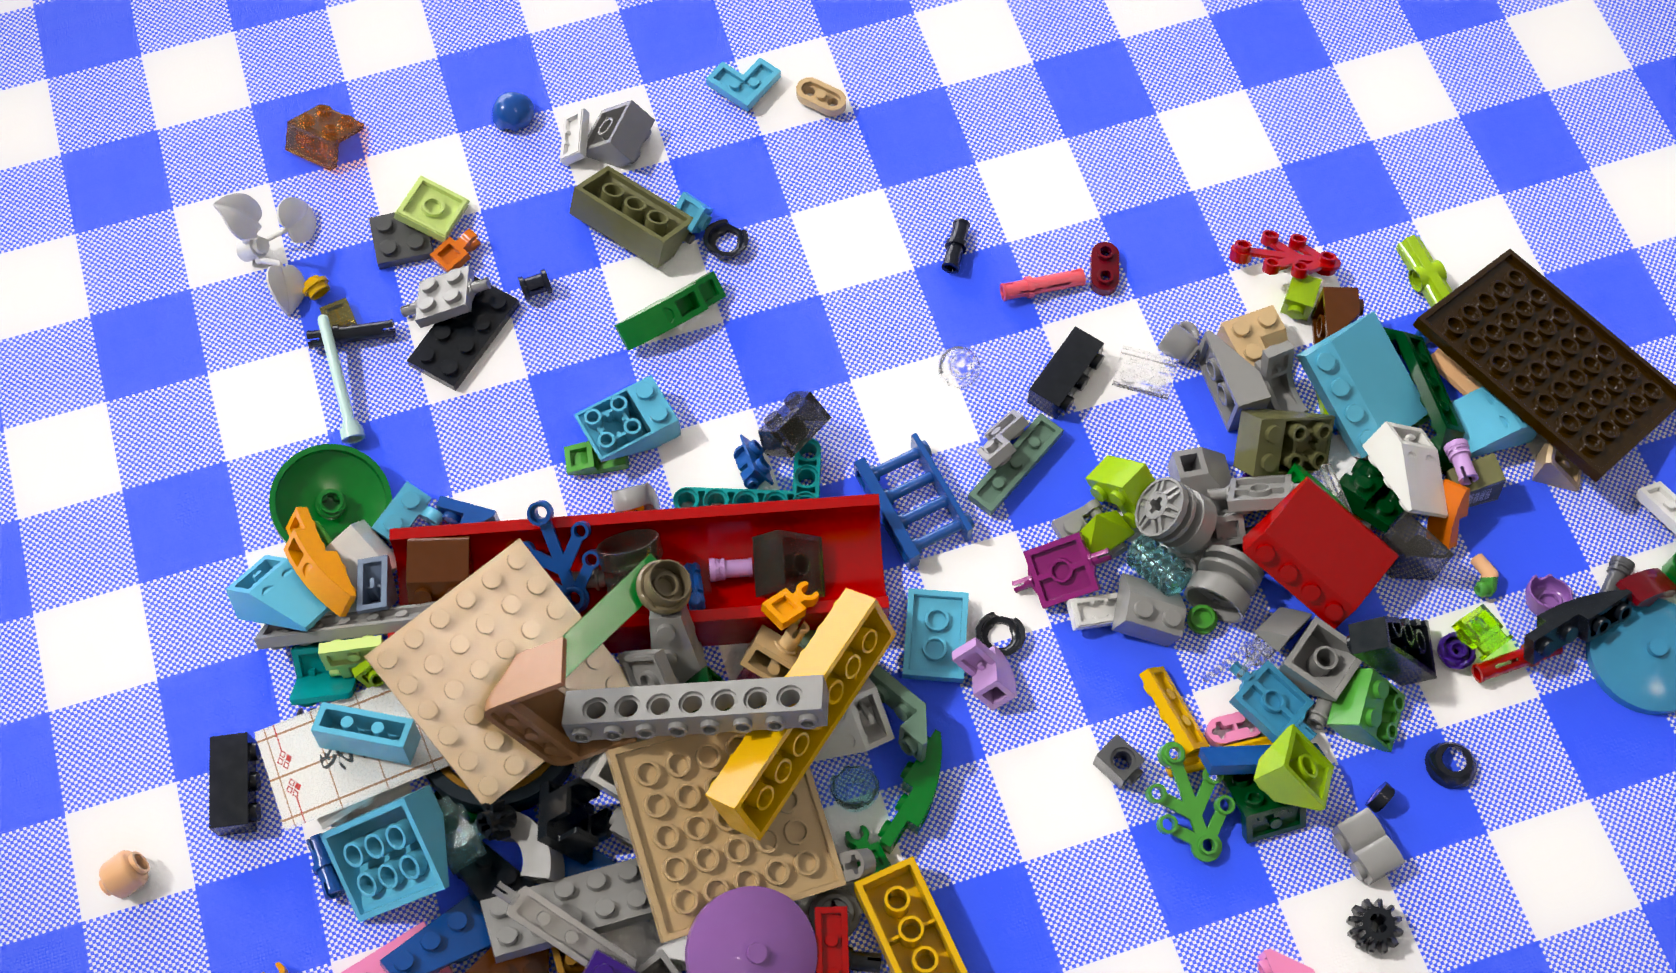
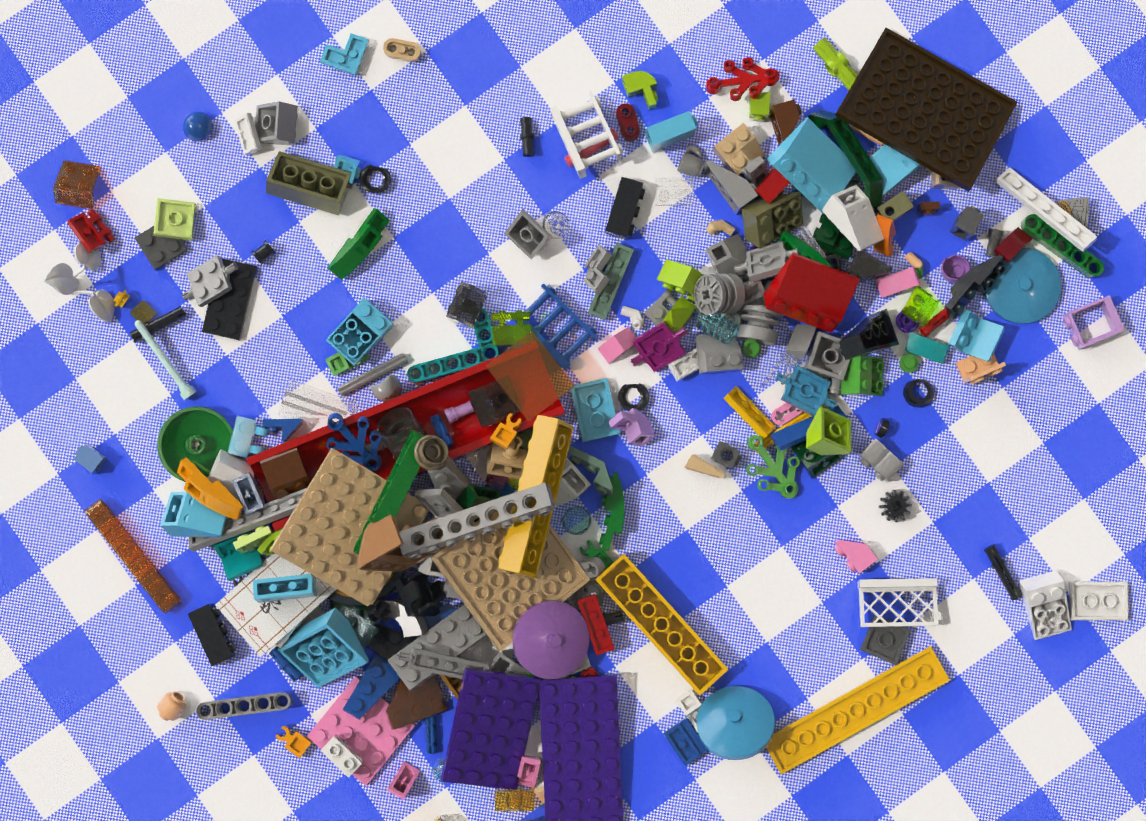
camera: 20 degrees left, 20 degrees up
(171, 634) = (132, 556): none -> clear orange beam
(175, 479) = (90, 458): none -> medium blue brick
(223, 900) = (236, 710): none -> light grey beam
(308, 189) = (87, 233): none -> red plate
(453, 253) = (200, 247): orange plate -> none
(512, 489) = (313, 403): none -> clear slope
(602, 492) = (372, 374): none -> light grey axle
(752, 463) = (444, 329): blue hinge -> none
(839, 482) = (509, 334): none -> clear neon green plate
(854, 539) = (530, 376): none -> clear orange piece
(917, 361) = (528, 234): none -> light grey slope
(998, 554) = (617, 345): none -> bright pink slope
(1018, 271) = (567, 133): none -> white fence
(1037, 522) = (635, 316): none -> white arm
(1076, 768) = (698, 465): none -> tan slope
(1137, 222) = (641, 82): none -> lime brick
(1164, 288) = (671, 131): none -> medium azure brick
(1200, 436) = (719, 225): none -> tan arm
(1297, 390) = (772, 185): none -> red slope
(1444, 713) = (908, 363): none -> bright green plate
(1454, 587) = (897, 282): none -> bright pink slope
(1459, 455) = (882, 198): lavender pin -> none
(1479, 698) = (927, 348): none -> teal slope
(1523, 499) = (928, 208): none -> reddish brown plate
(1558, 751) = (973, 369): none -> light nougat bracket
(1562, 703) = (976, 336): none -> medium azure bracket
(1580, 533) = (966, 223): none -> dark grey brick

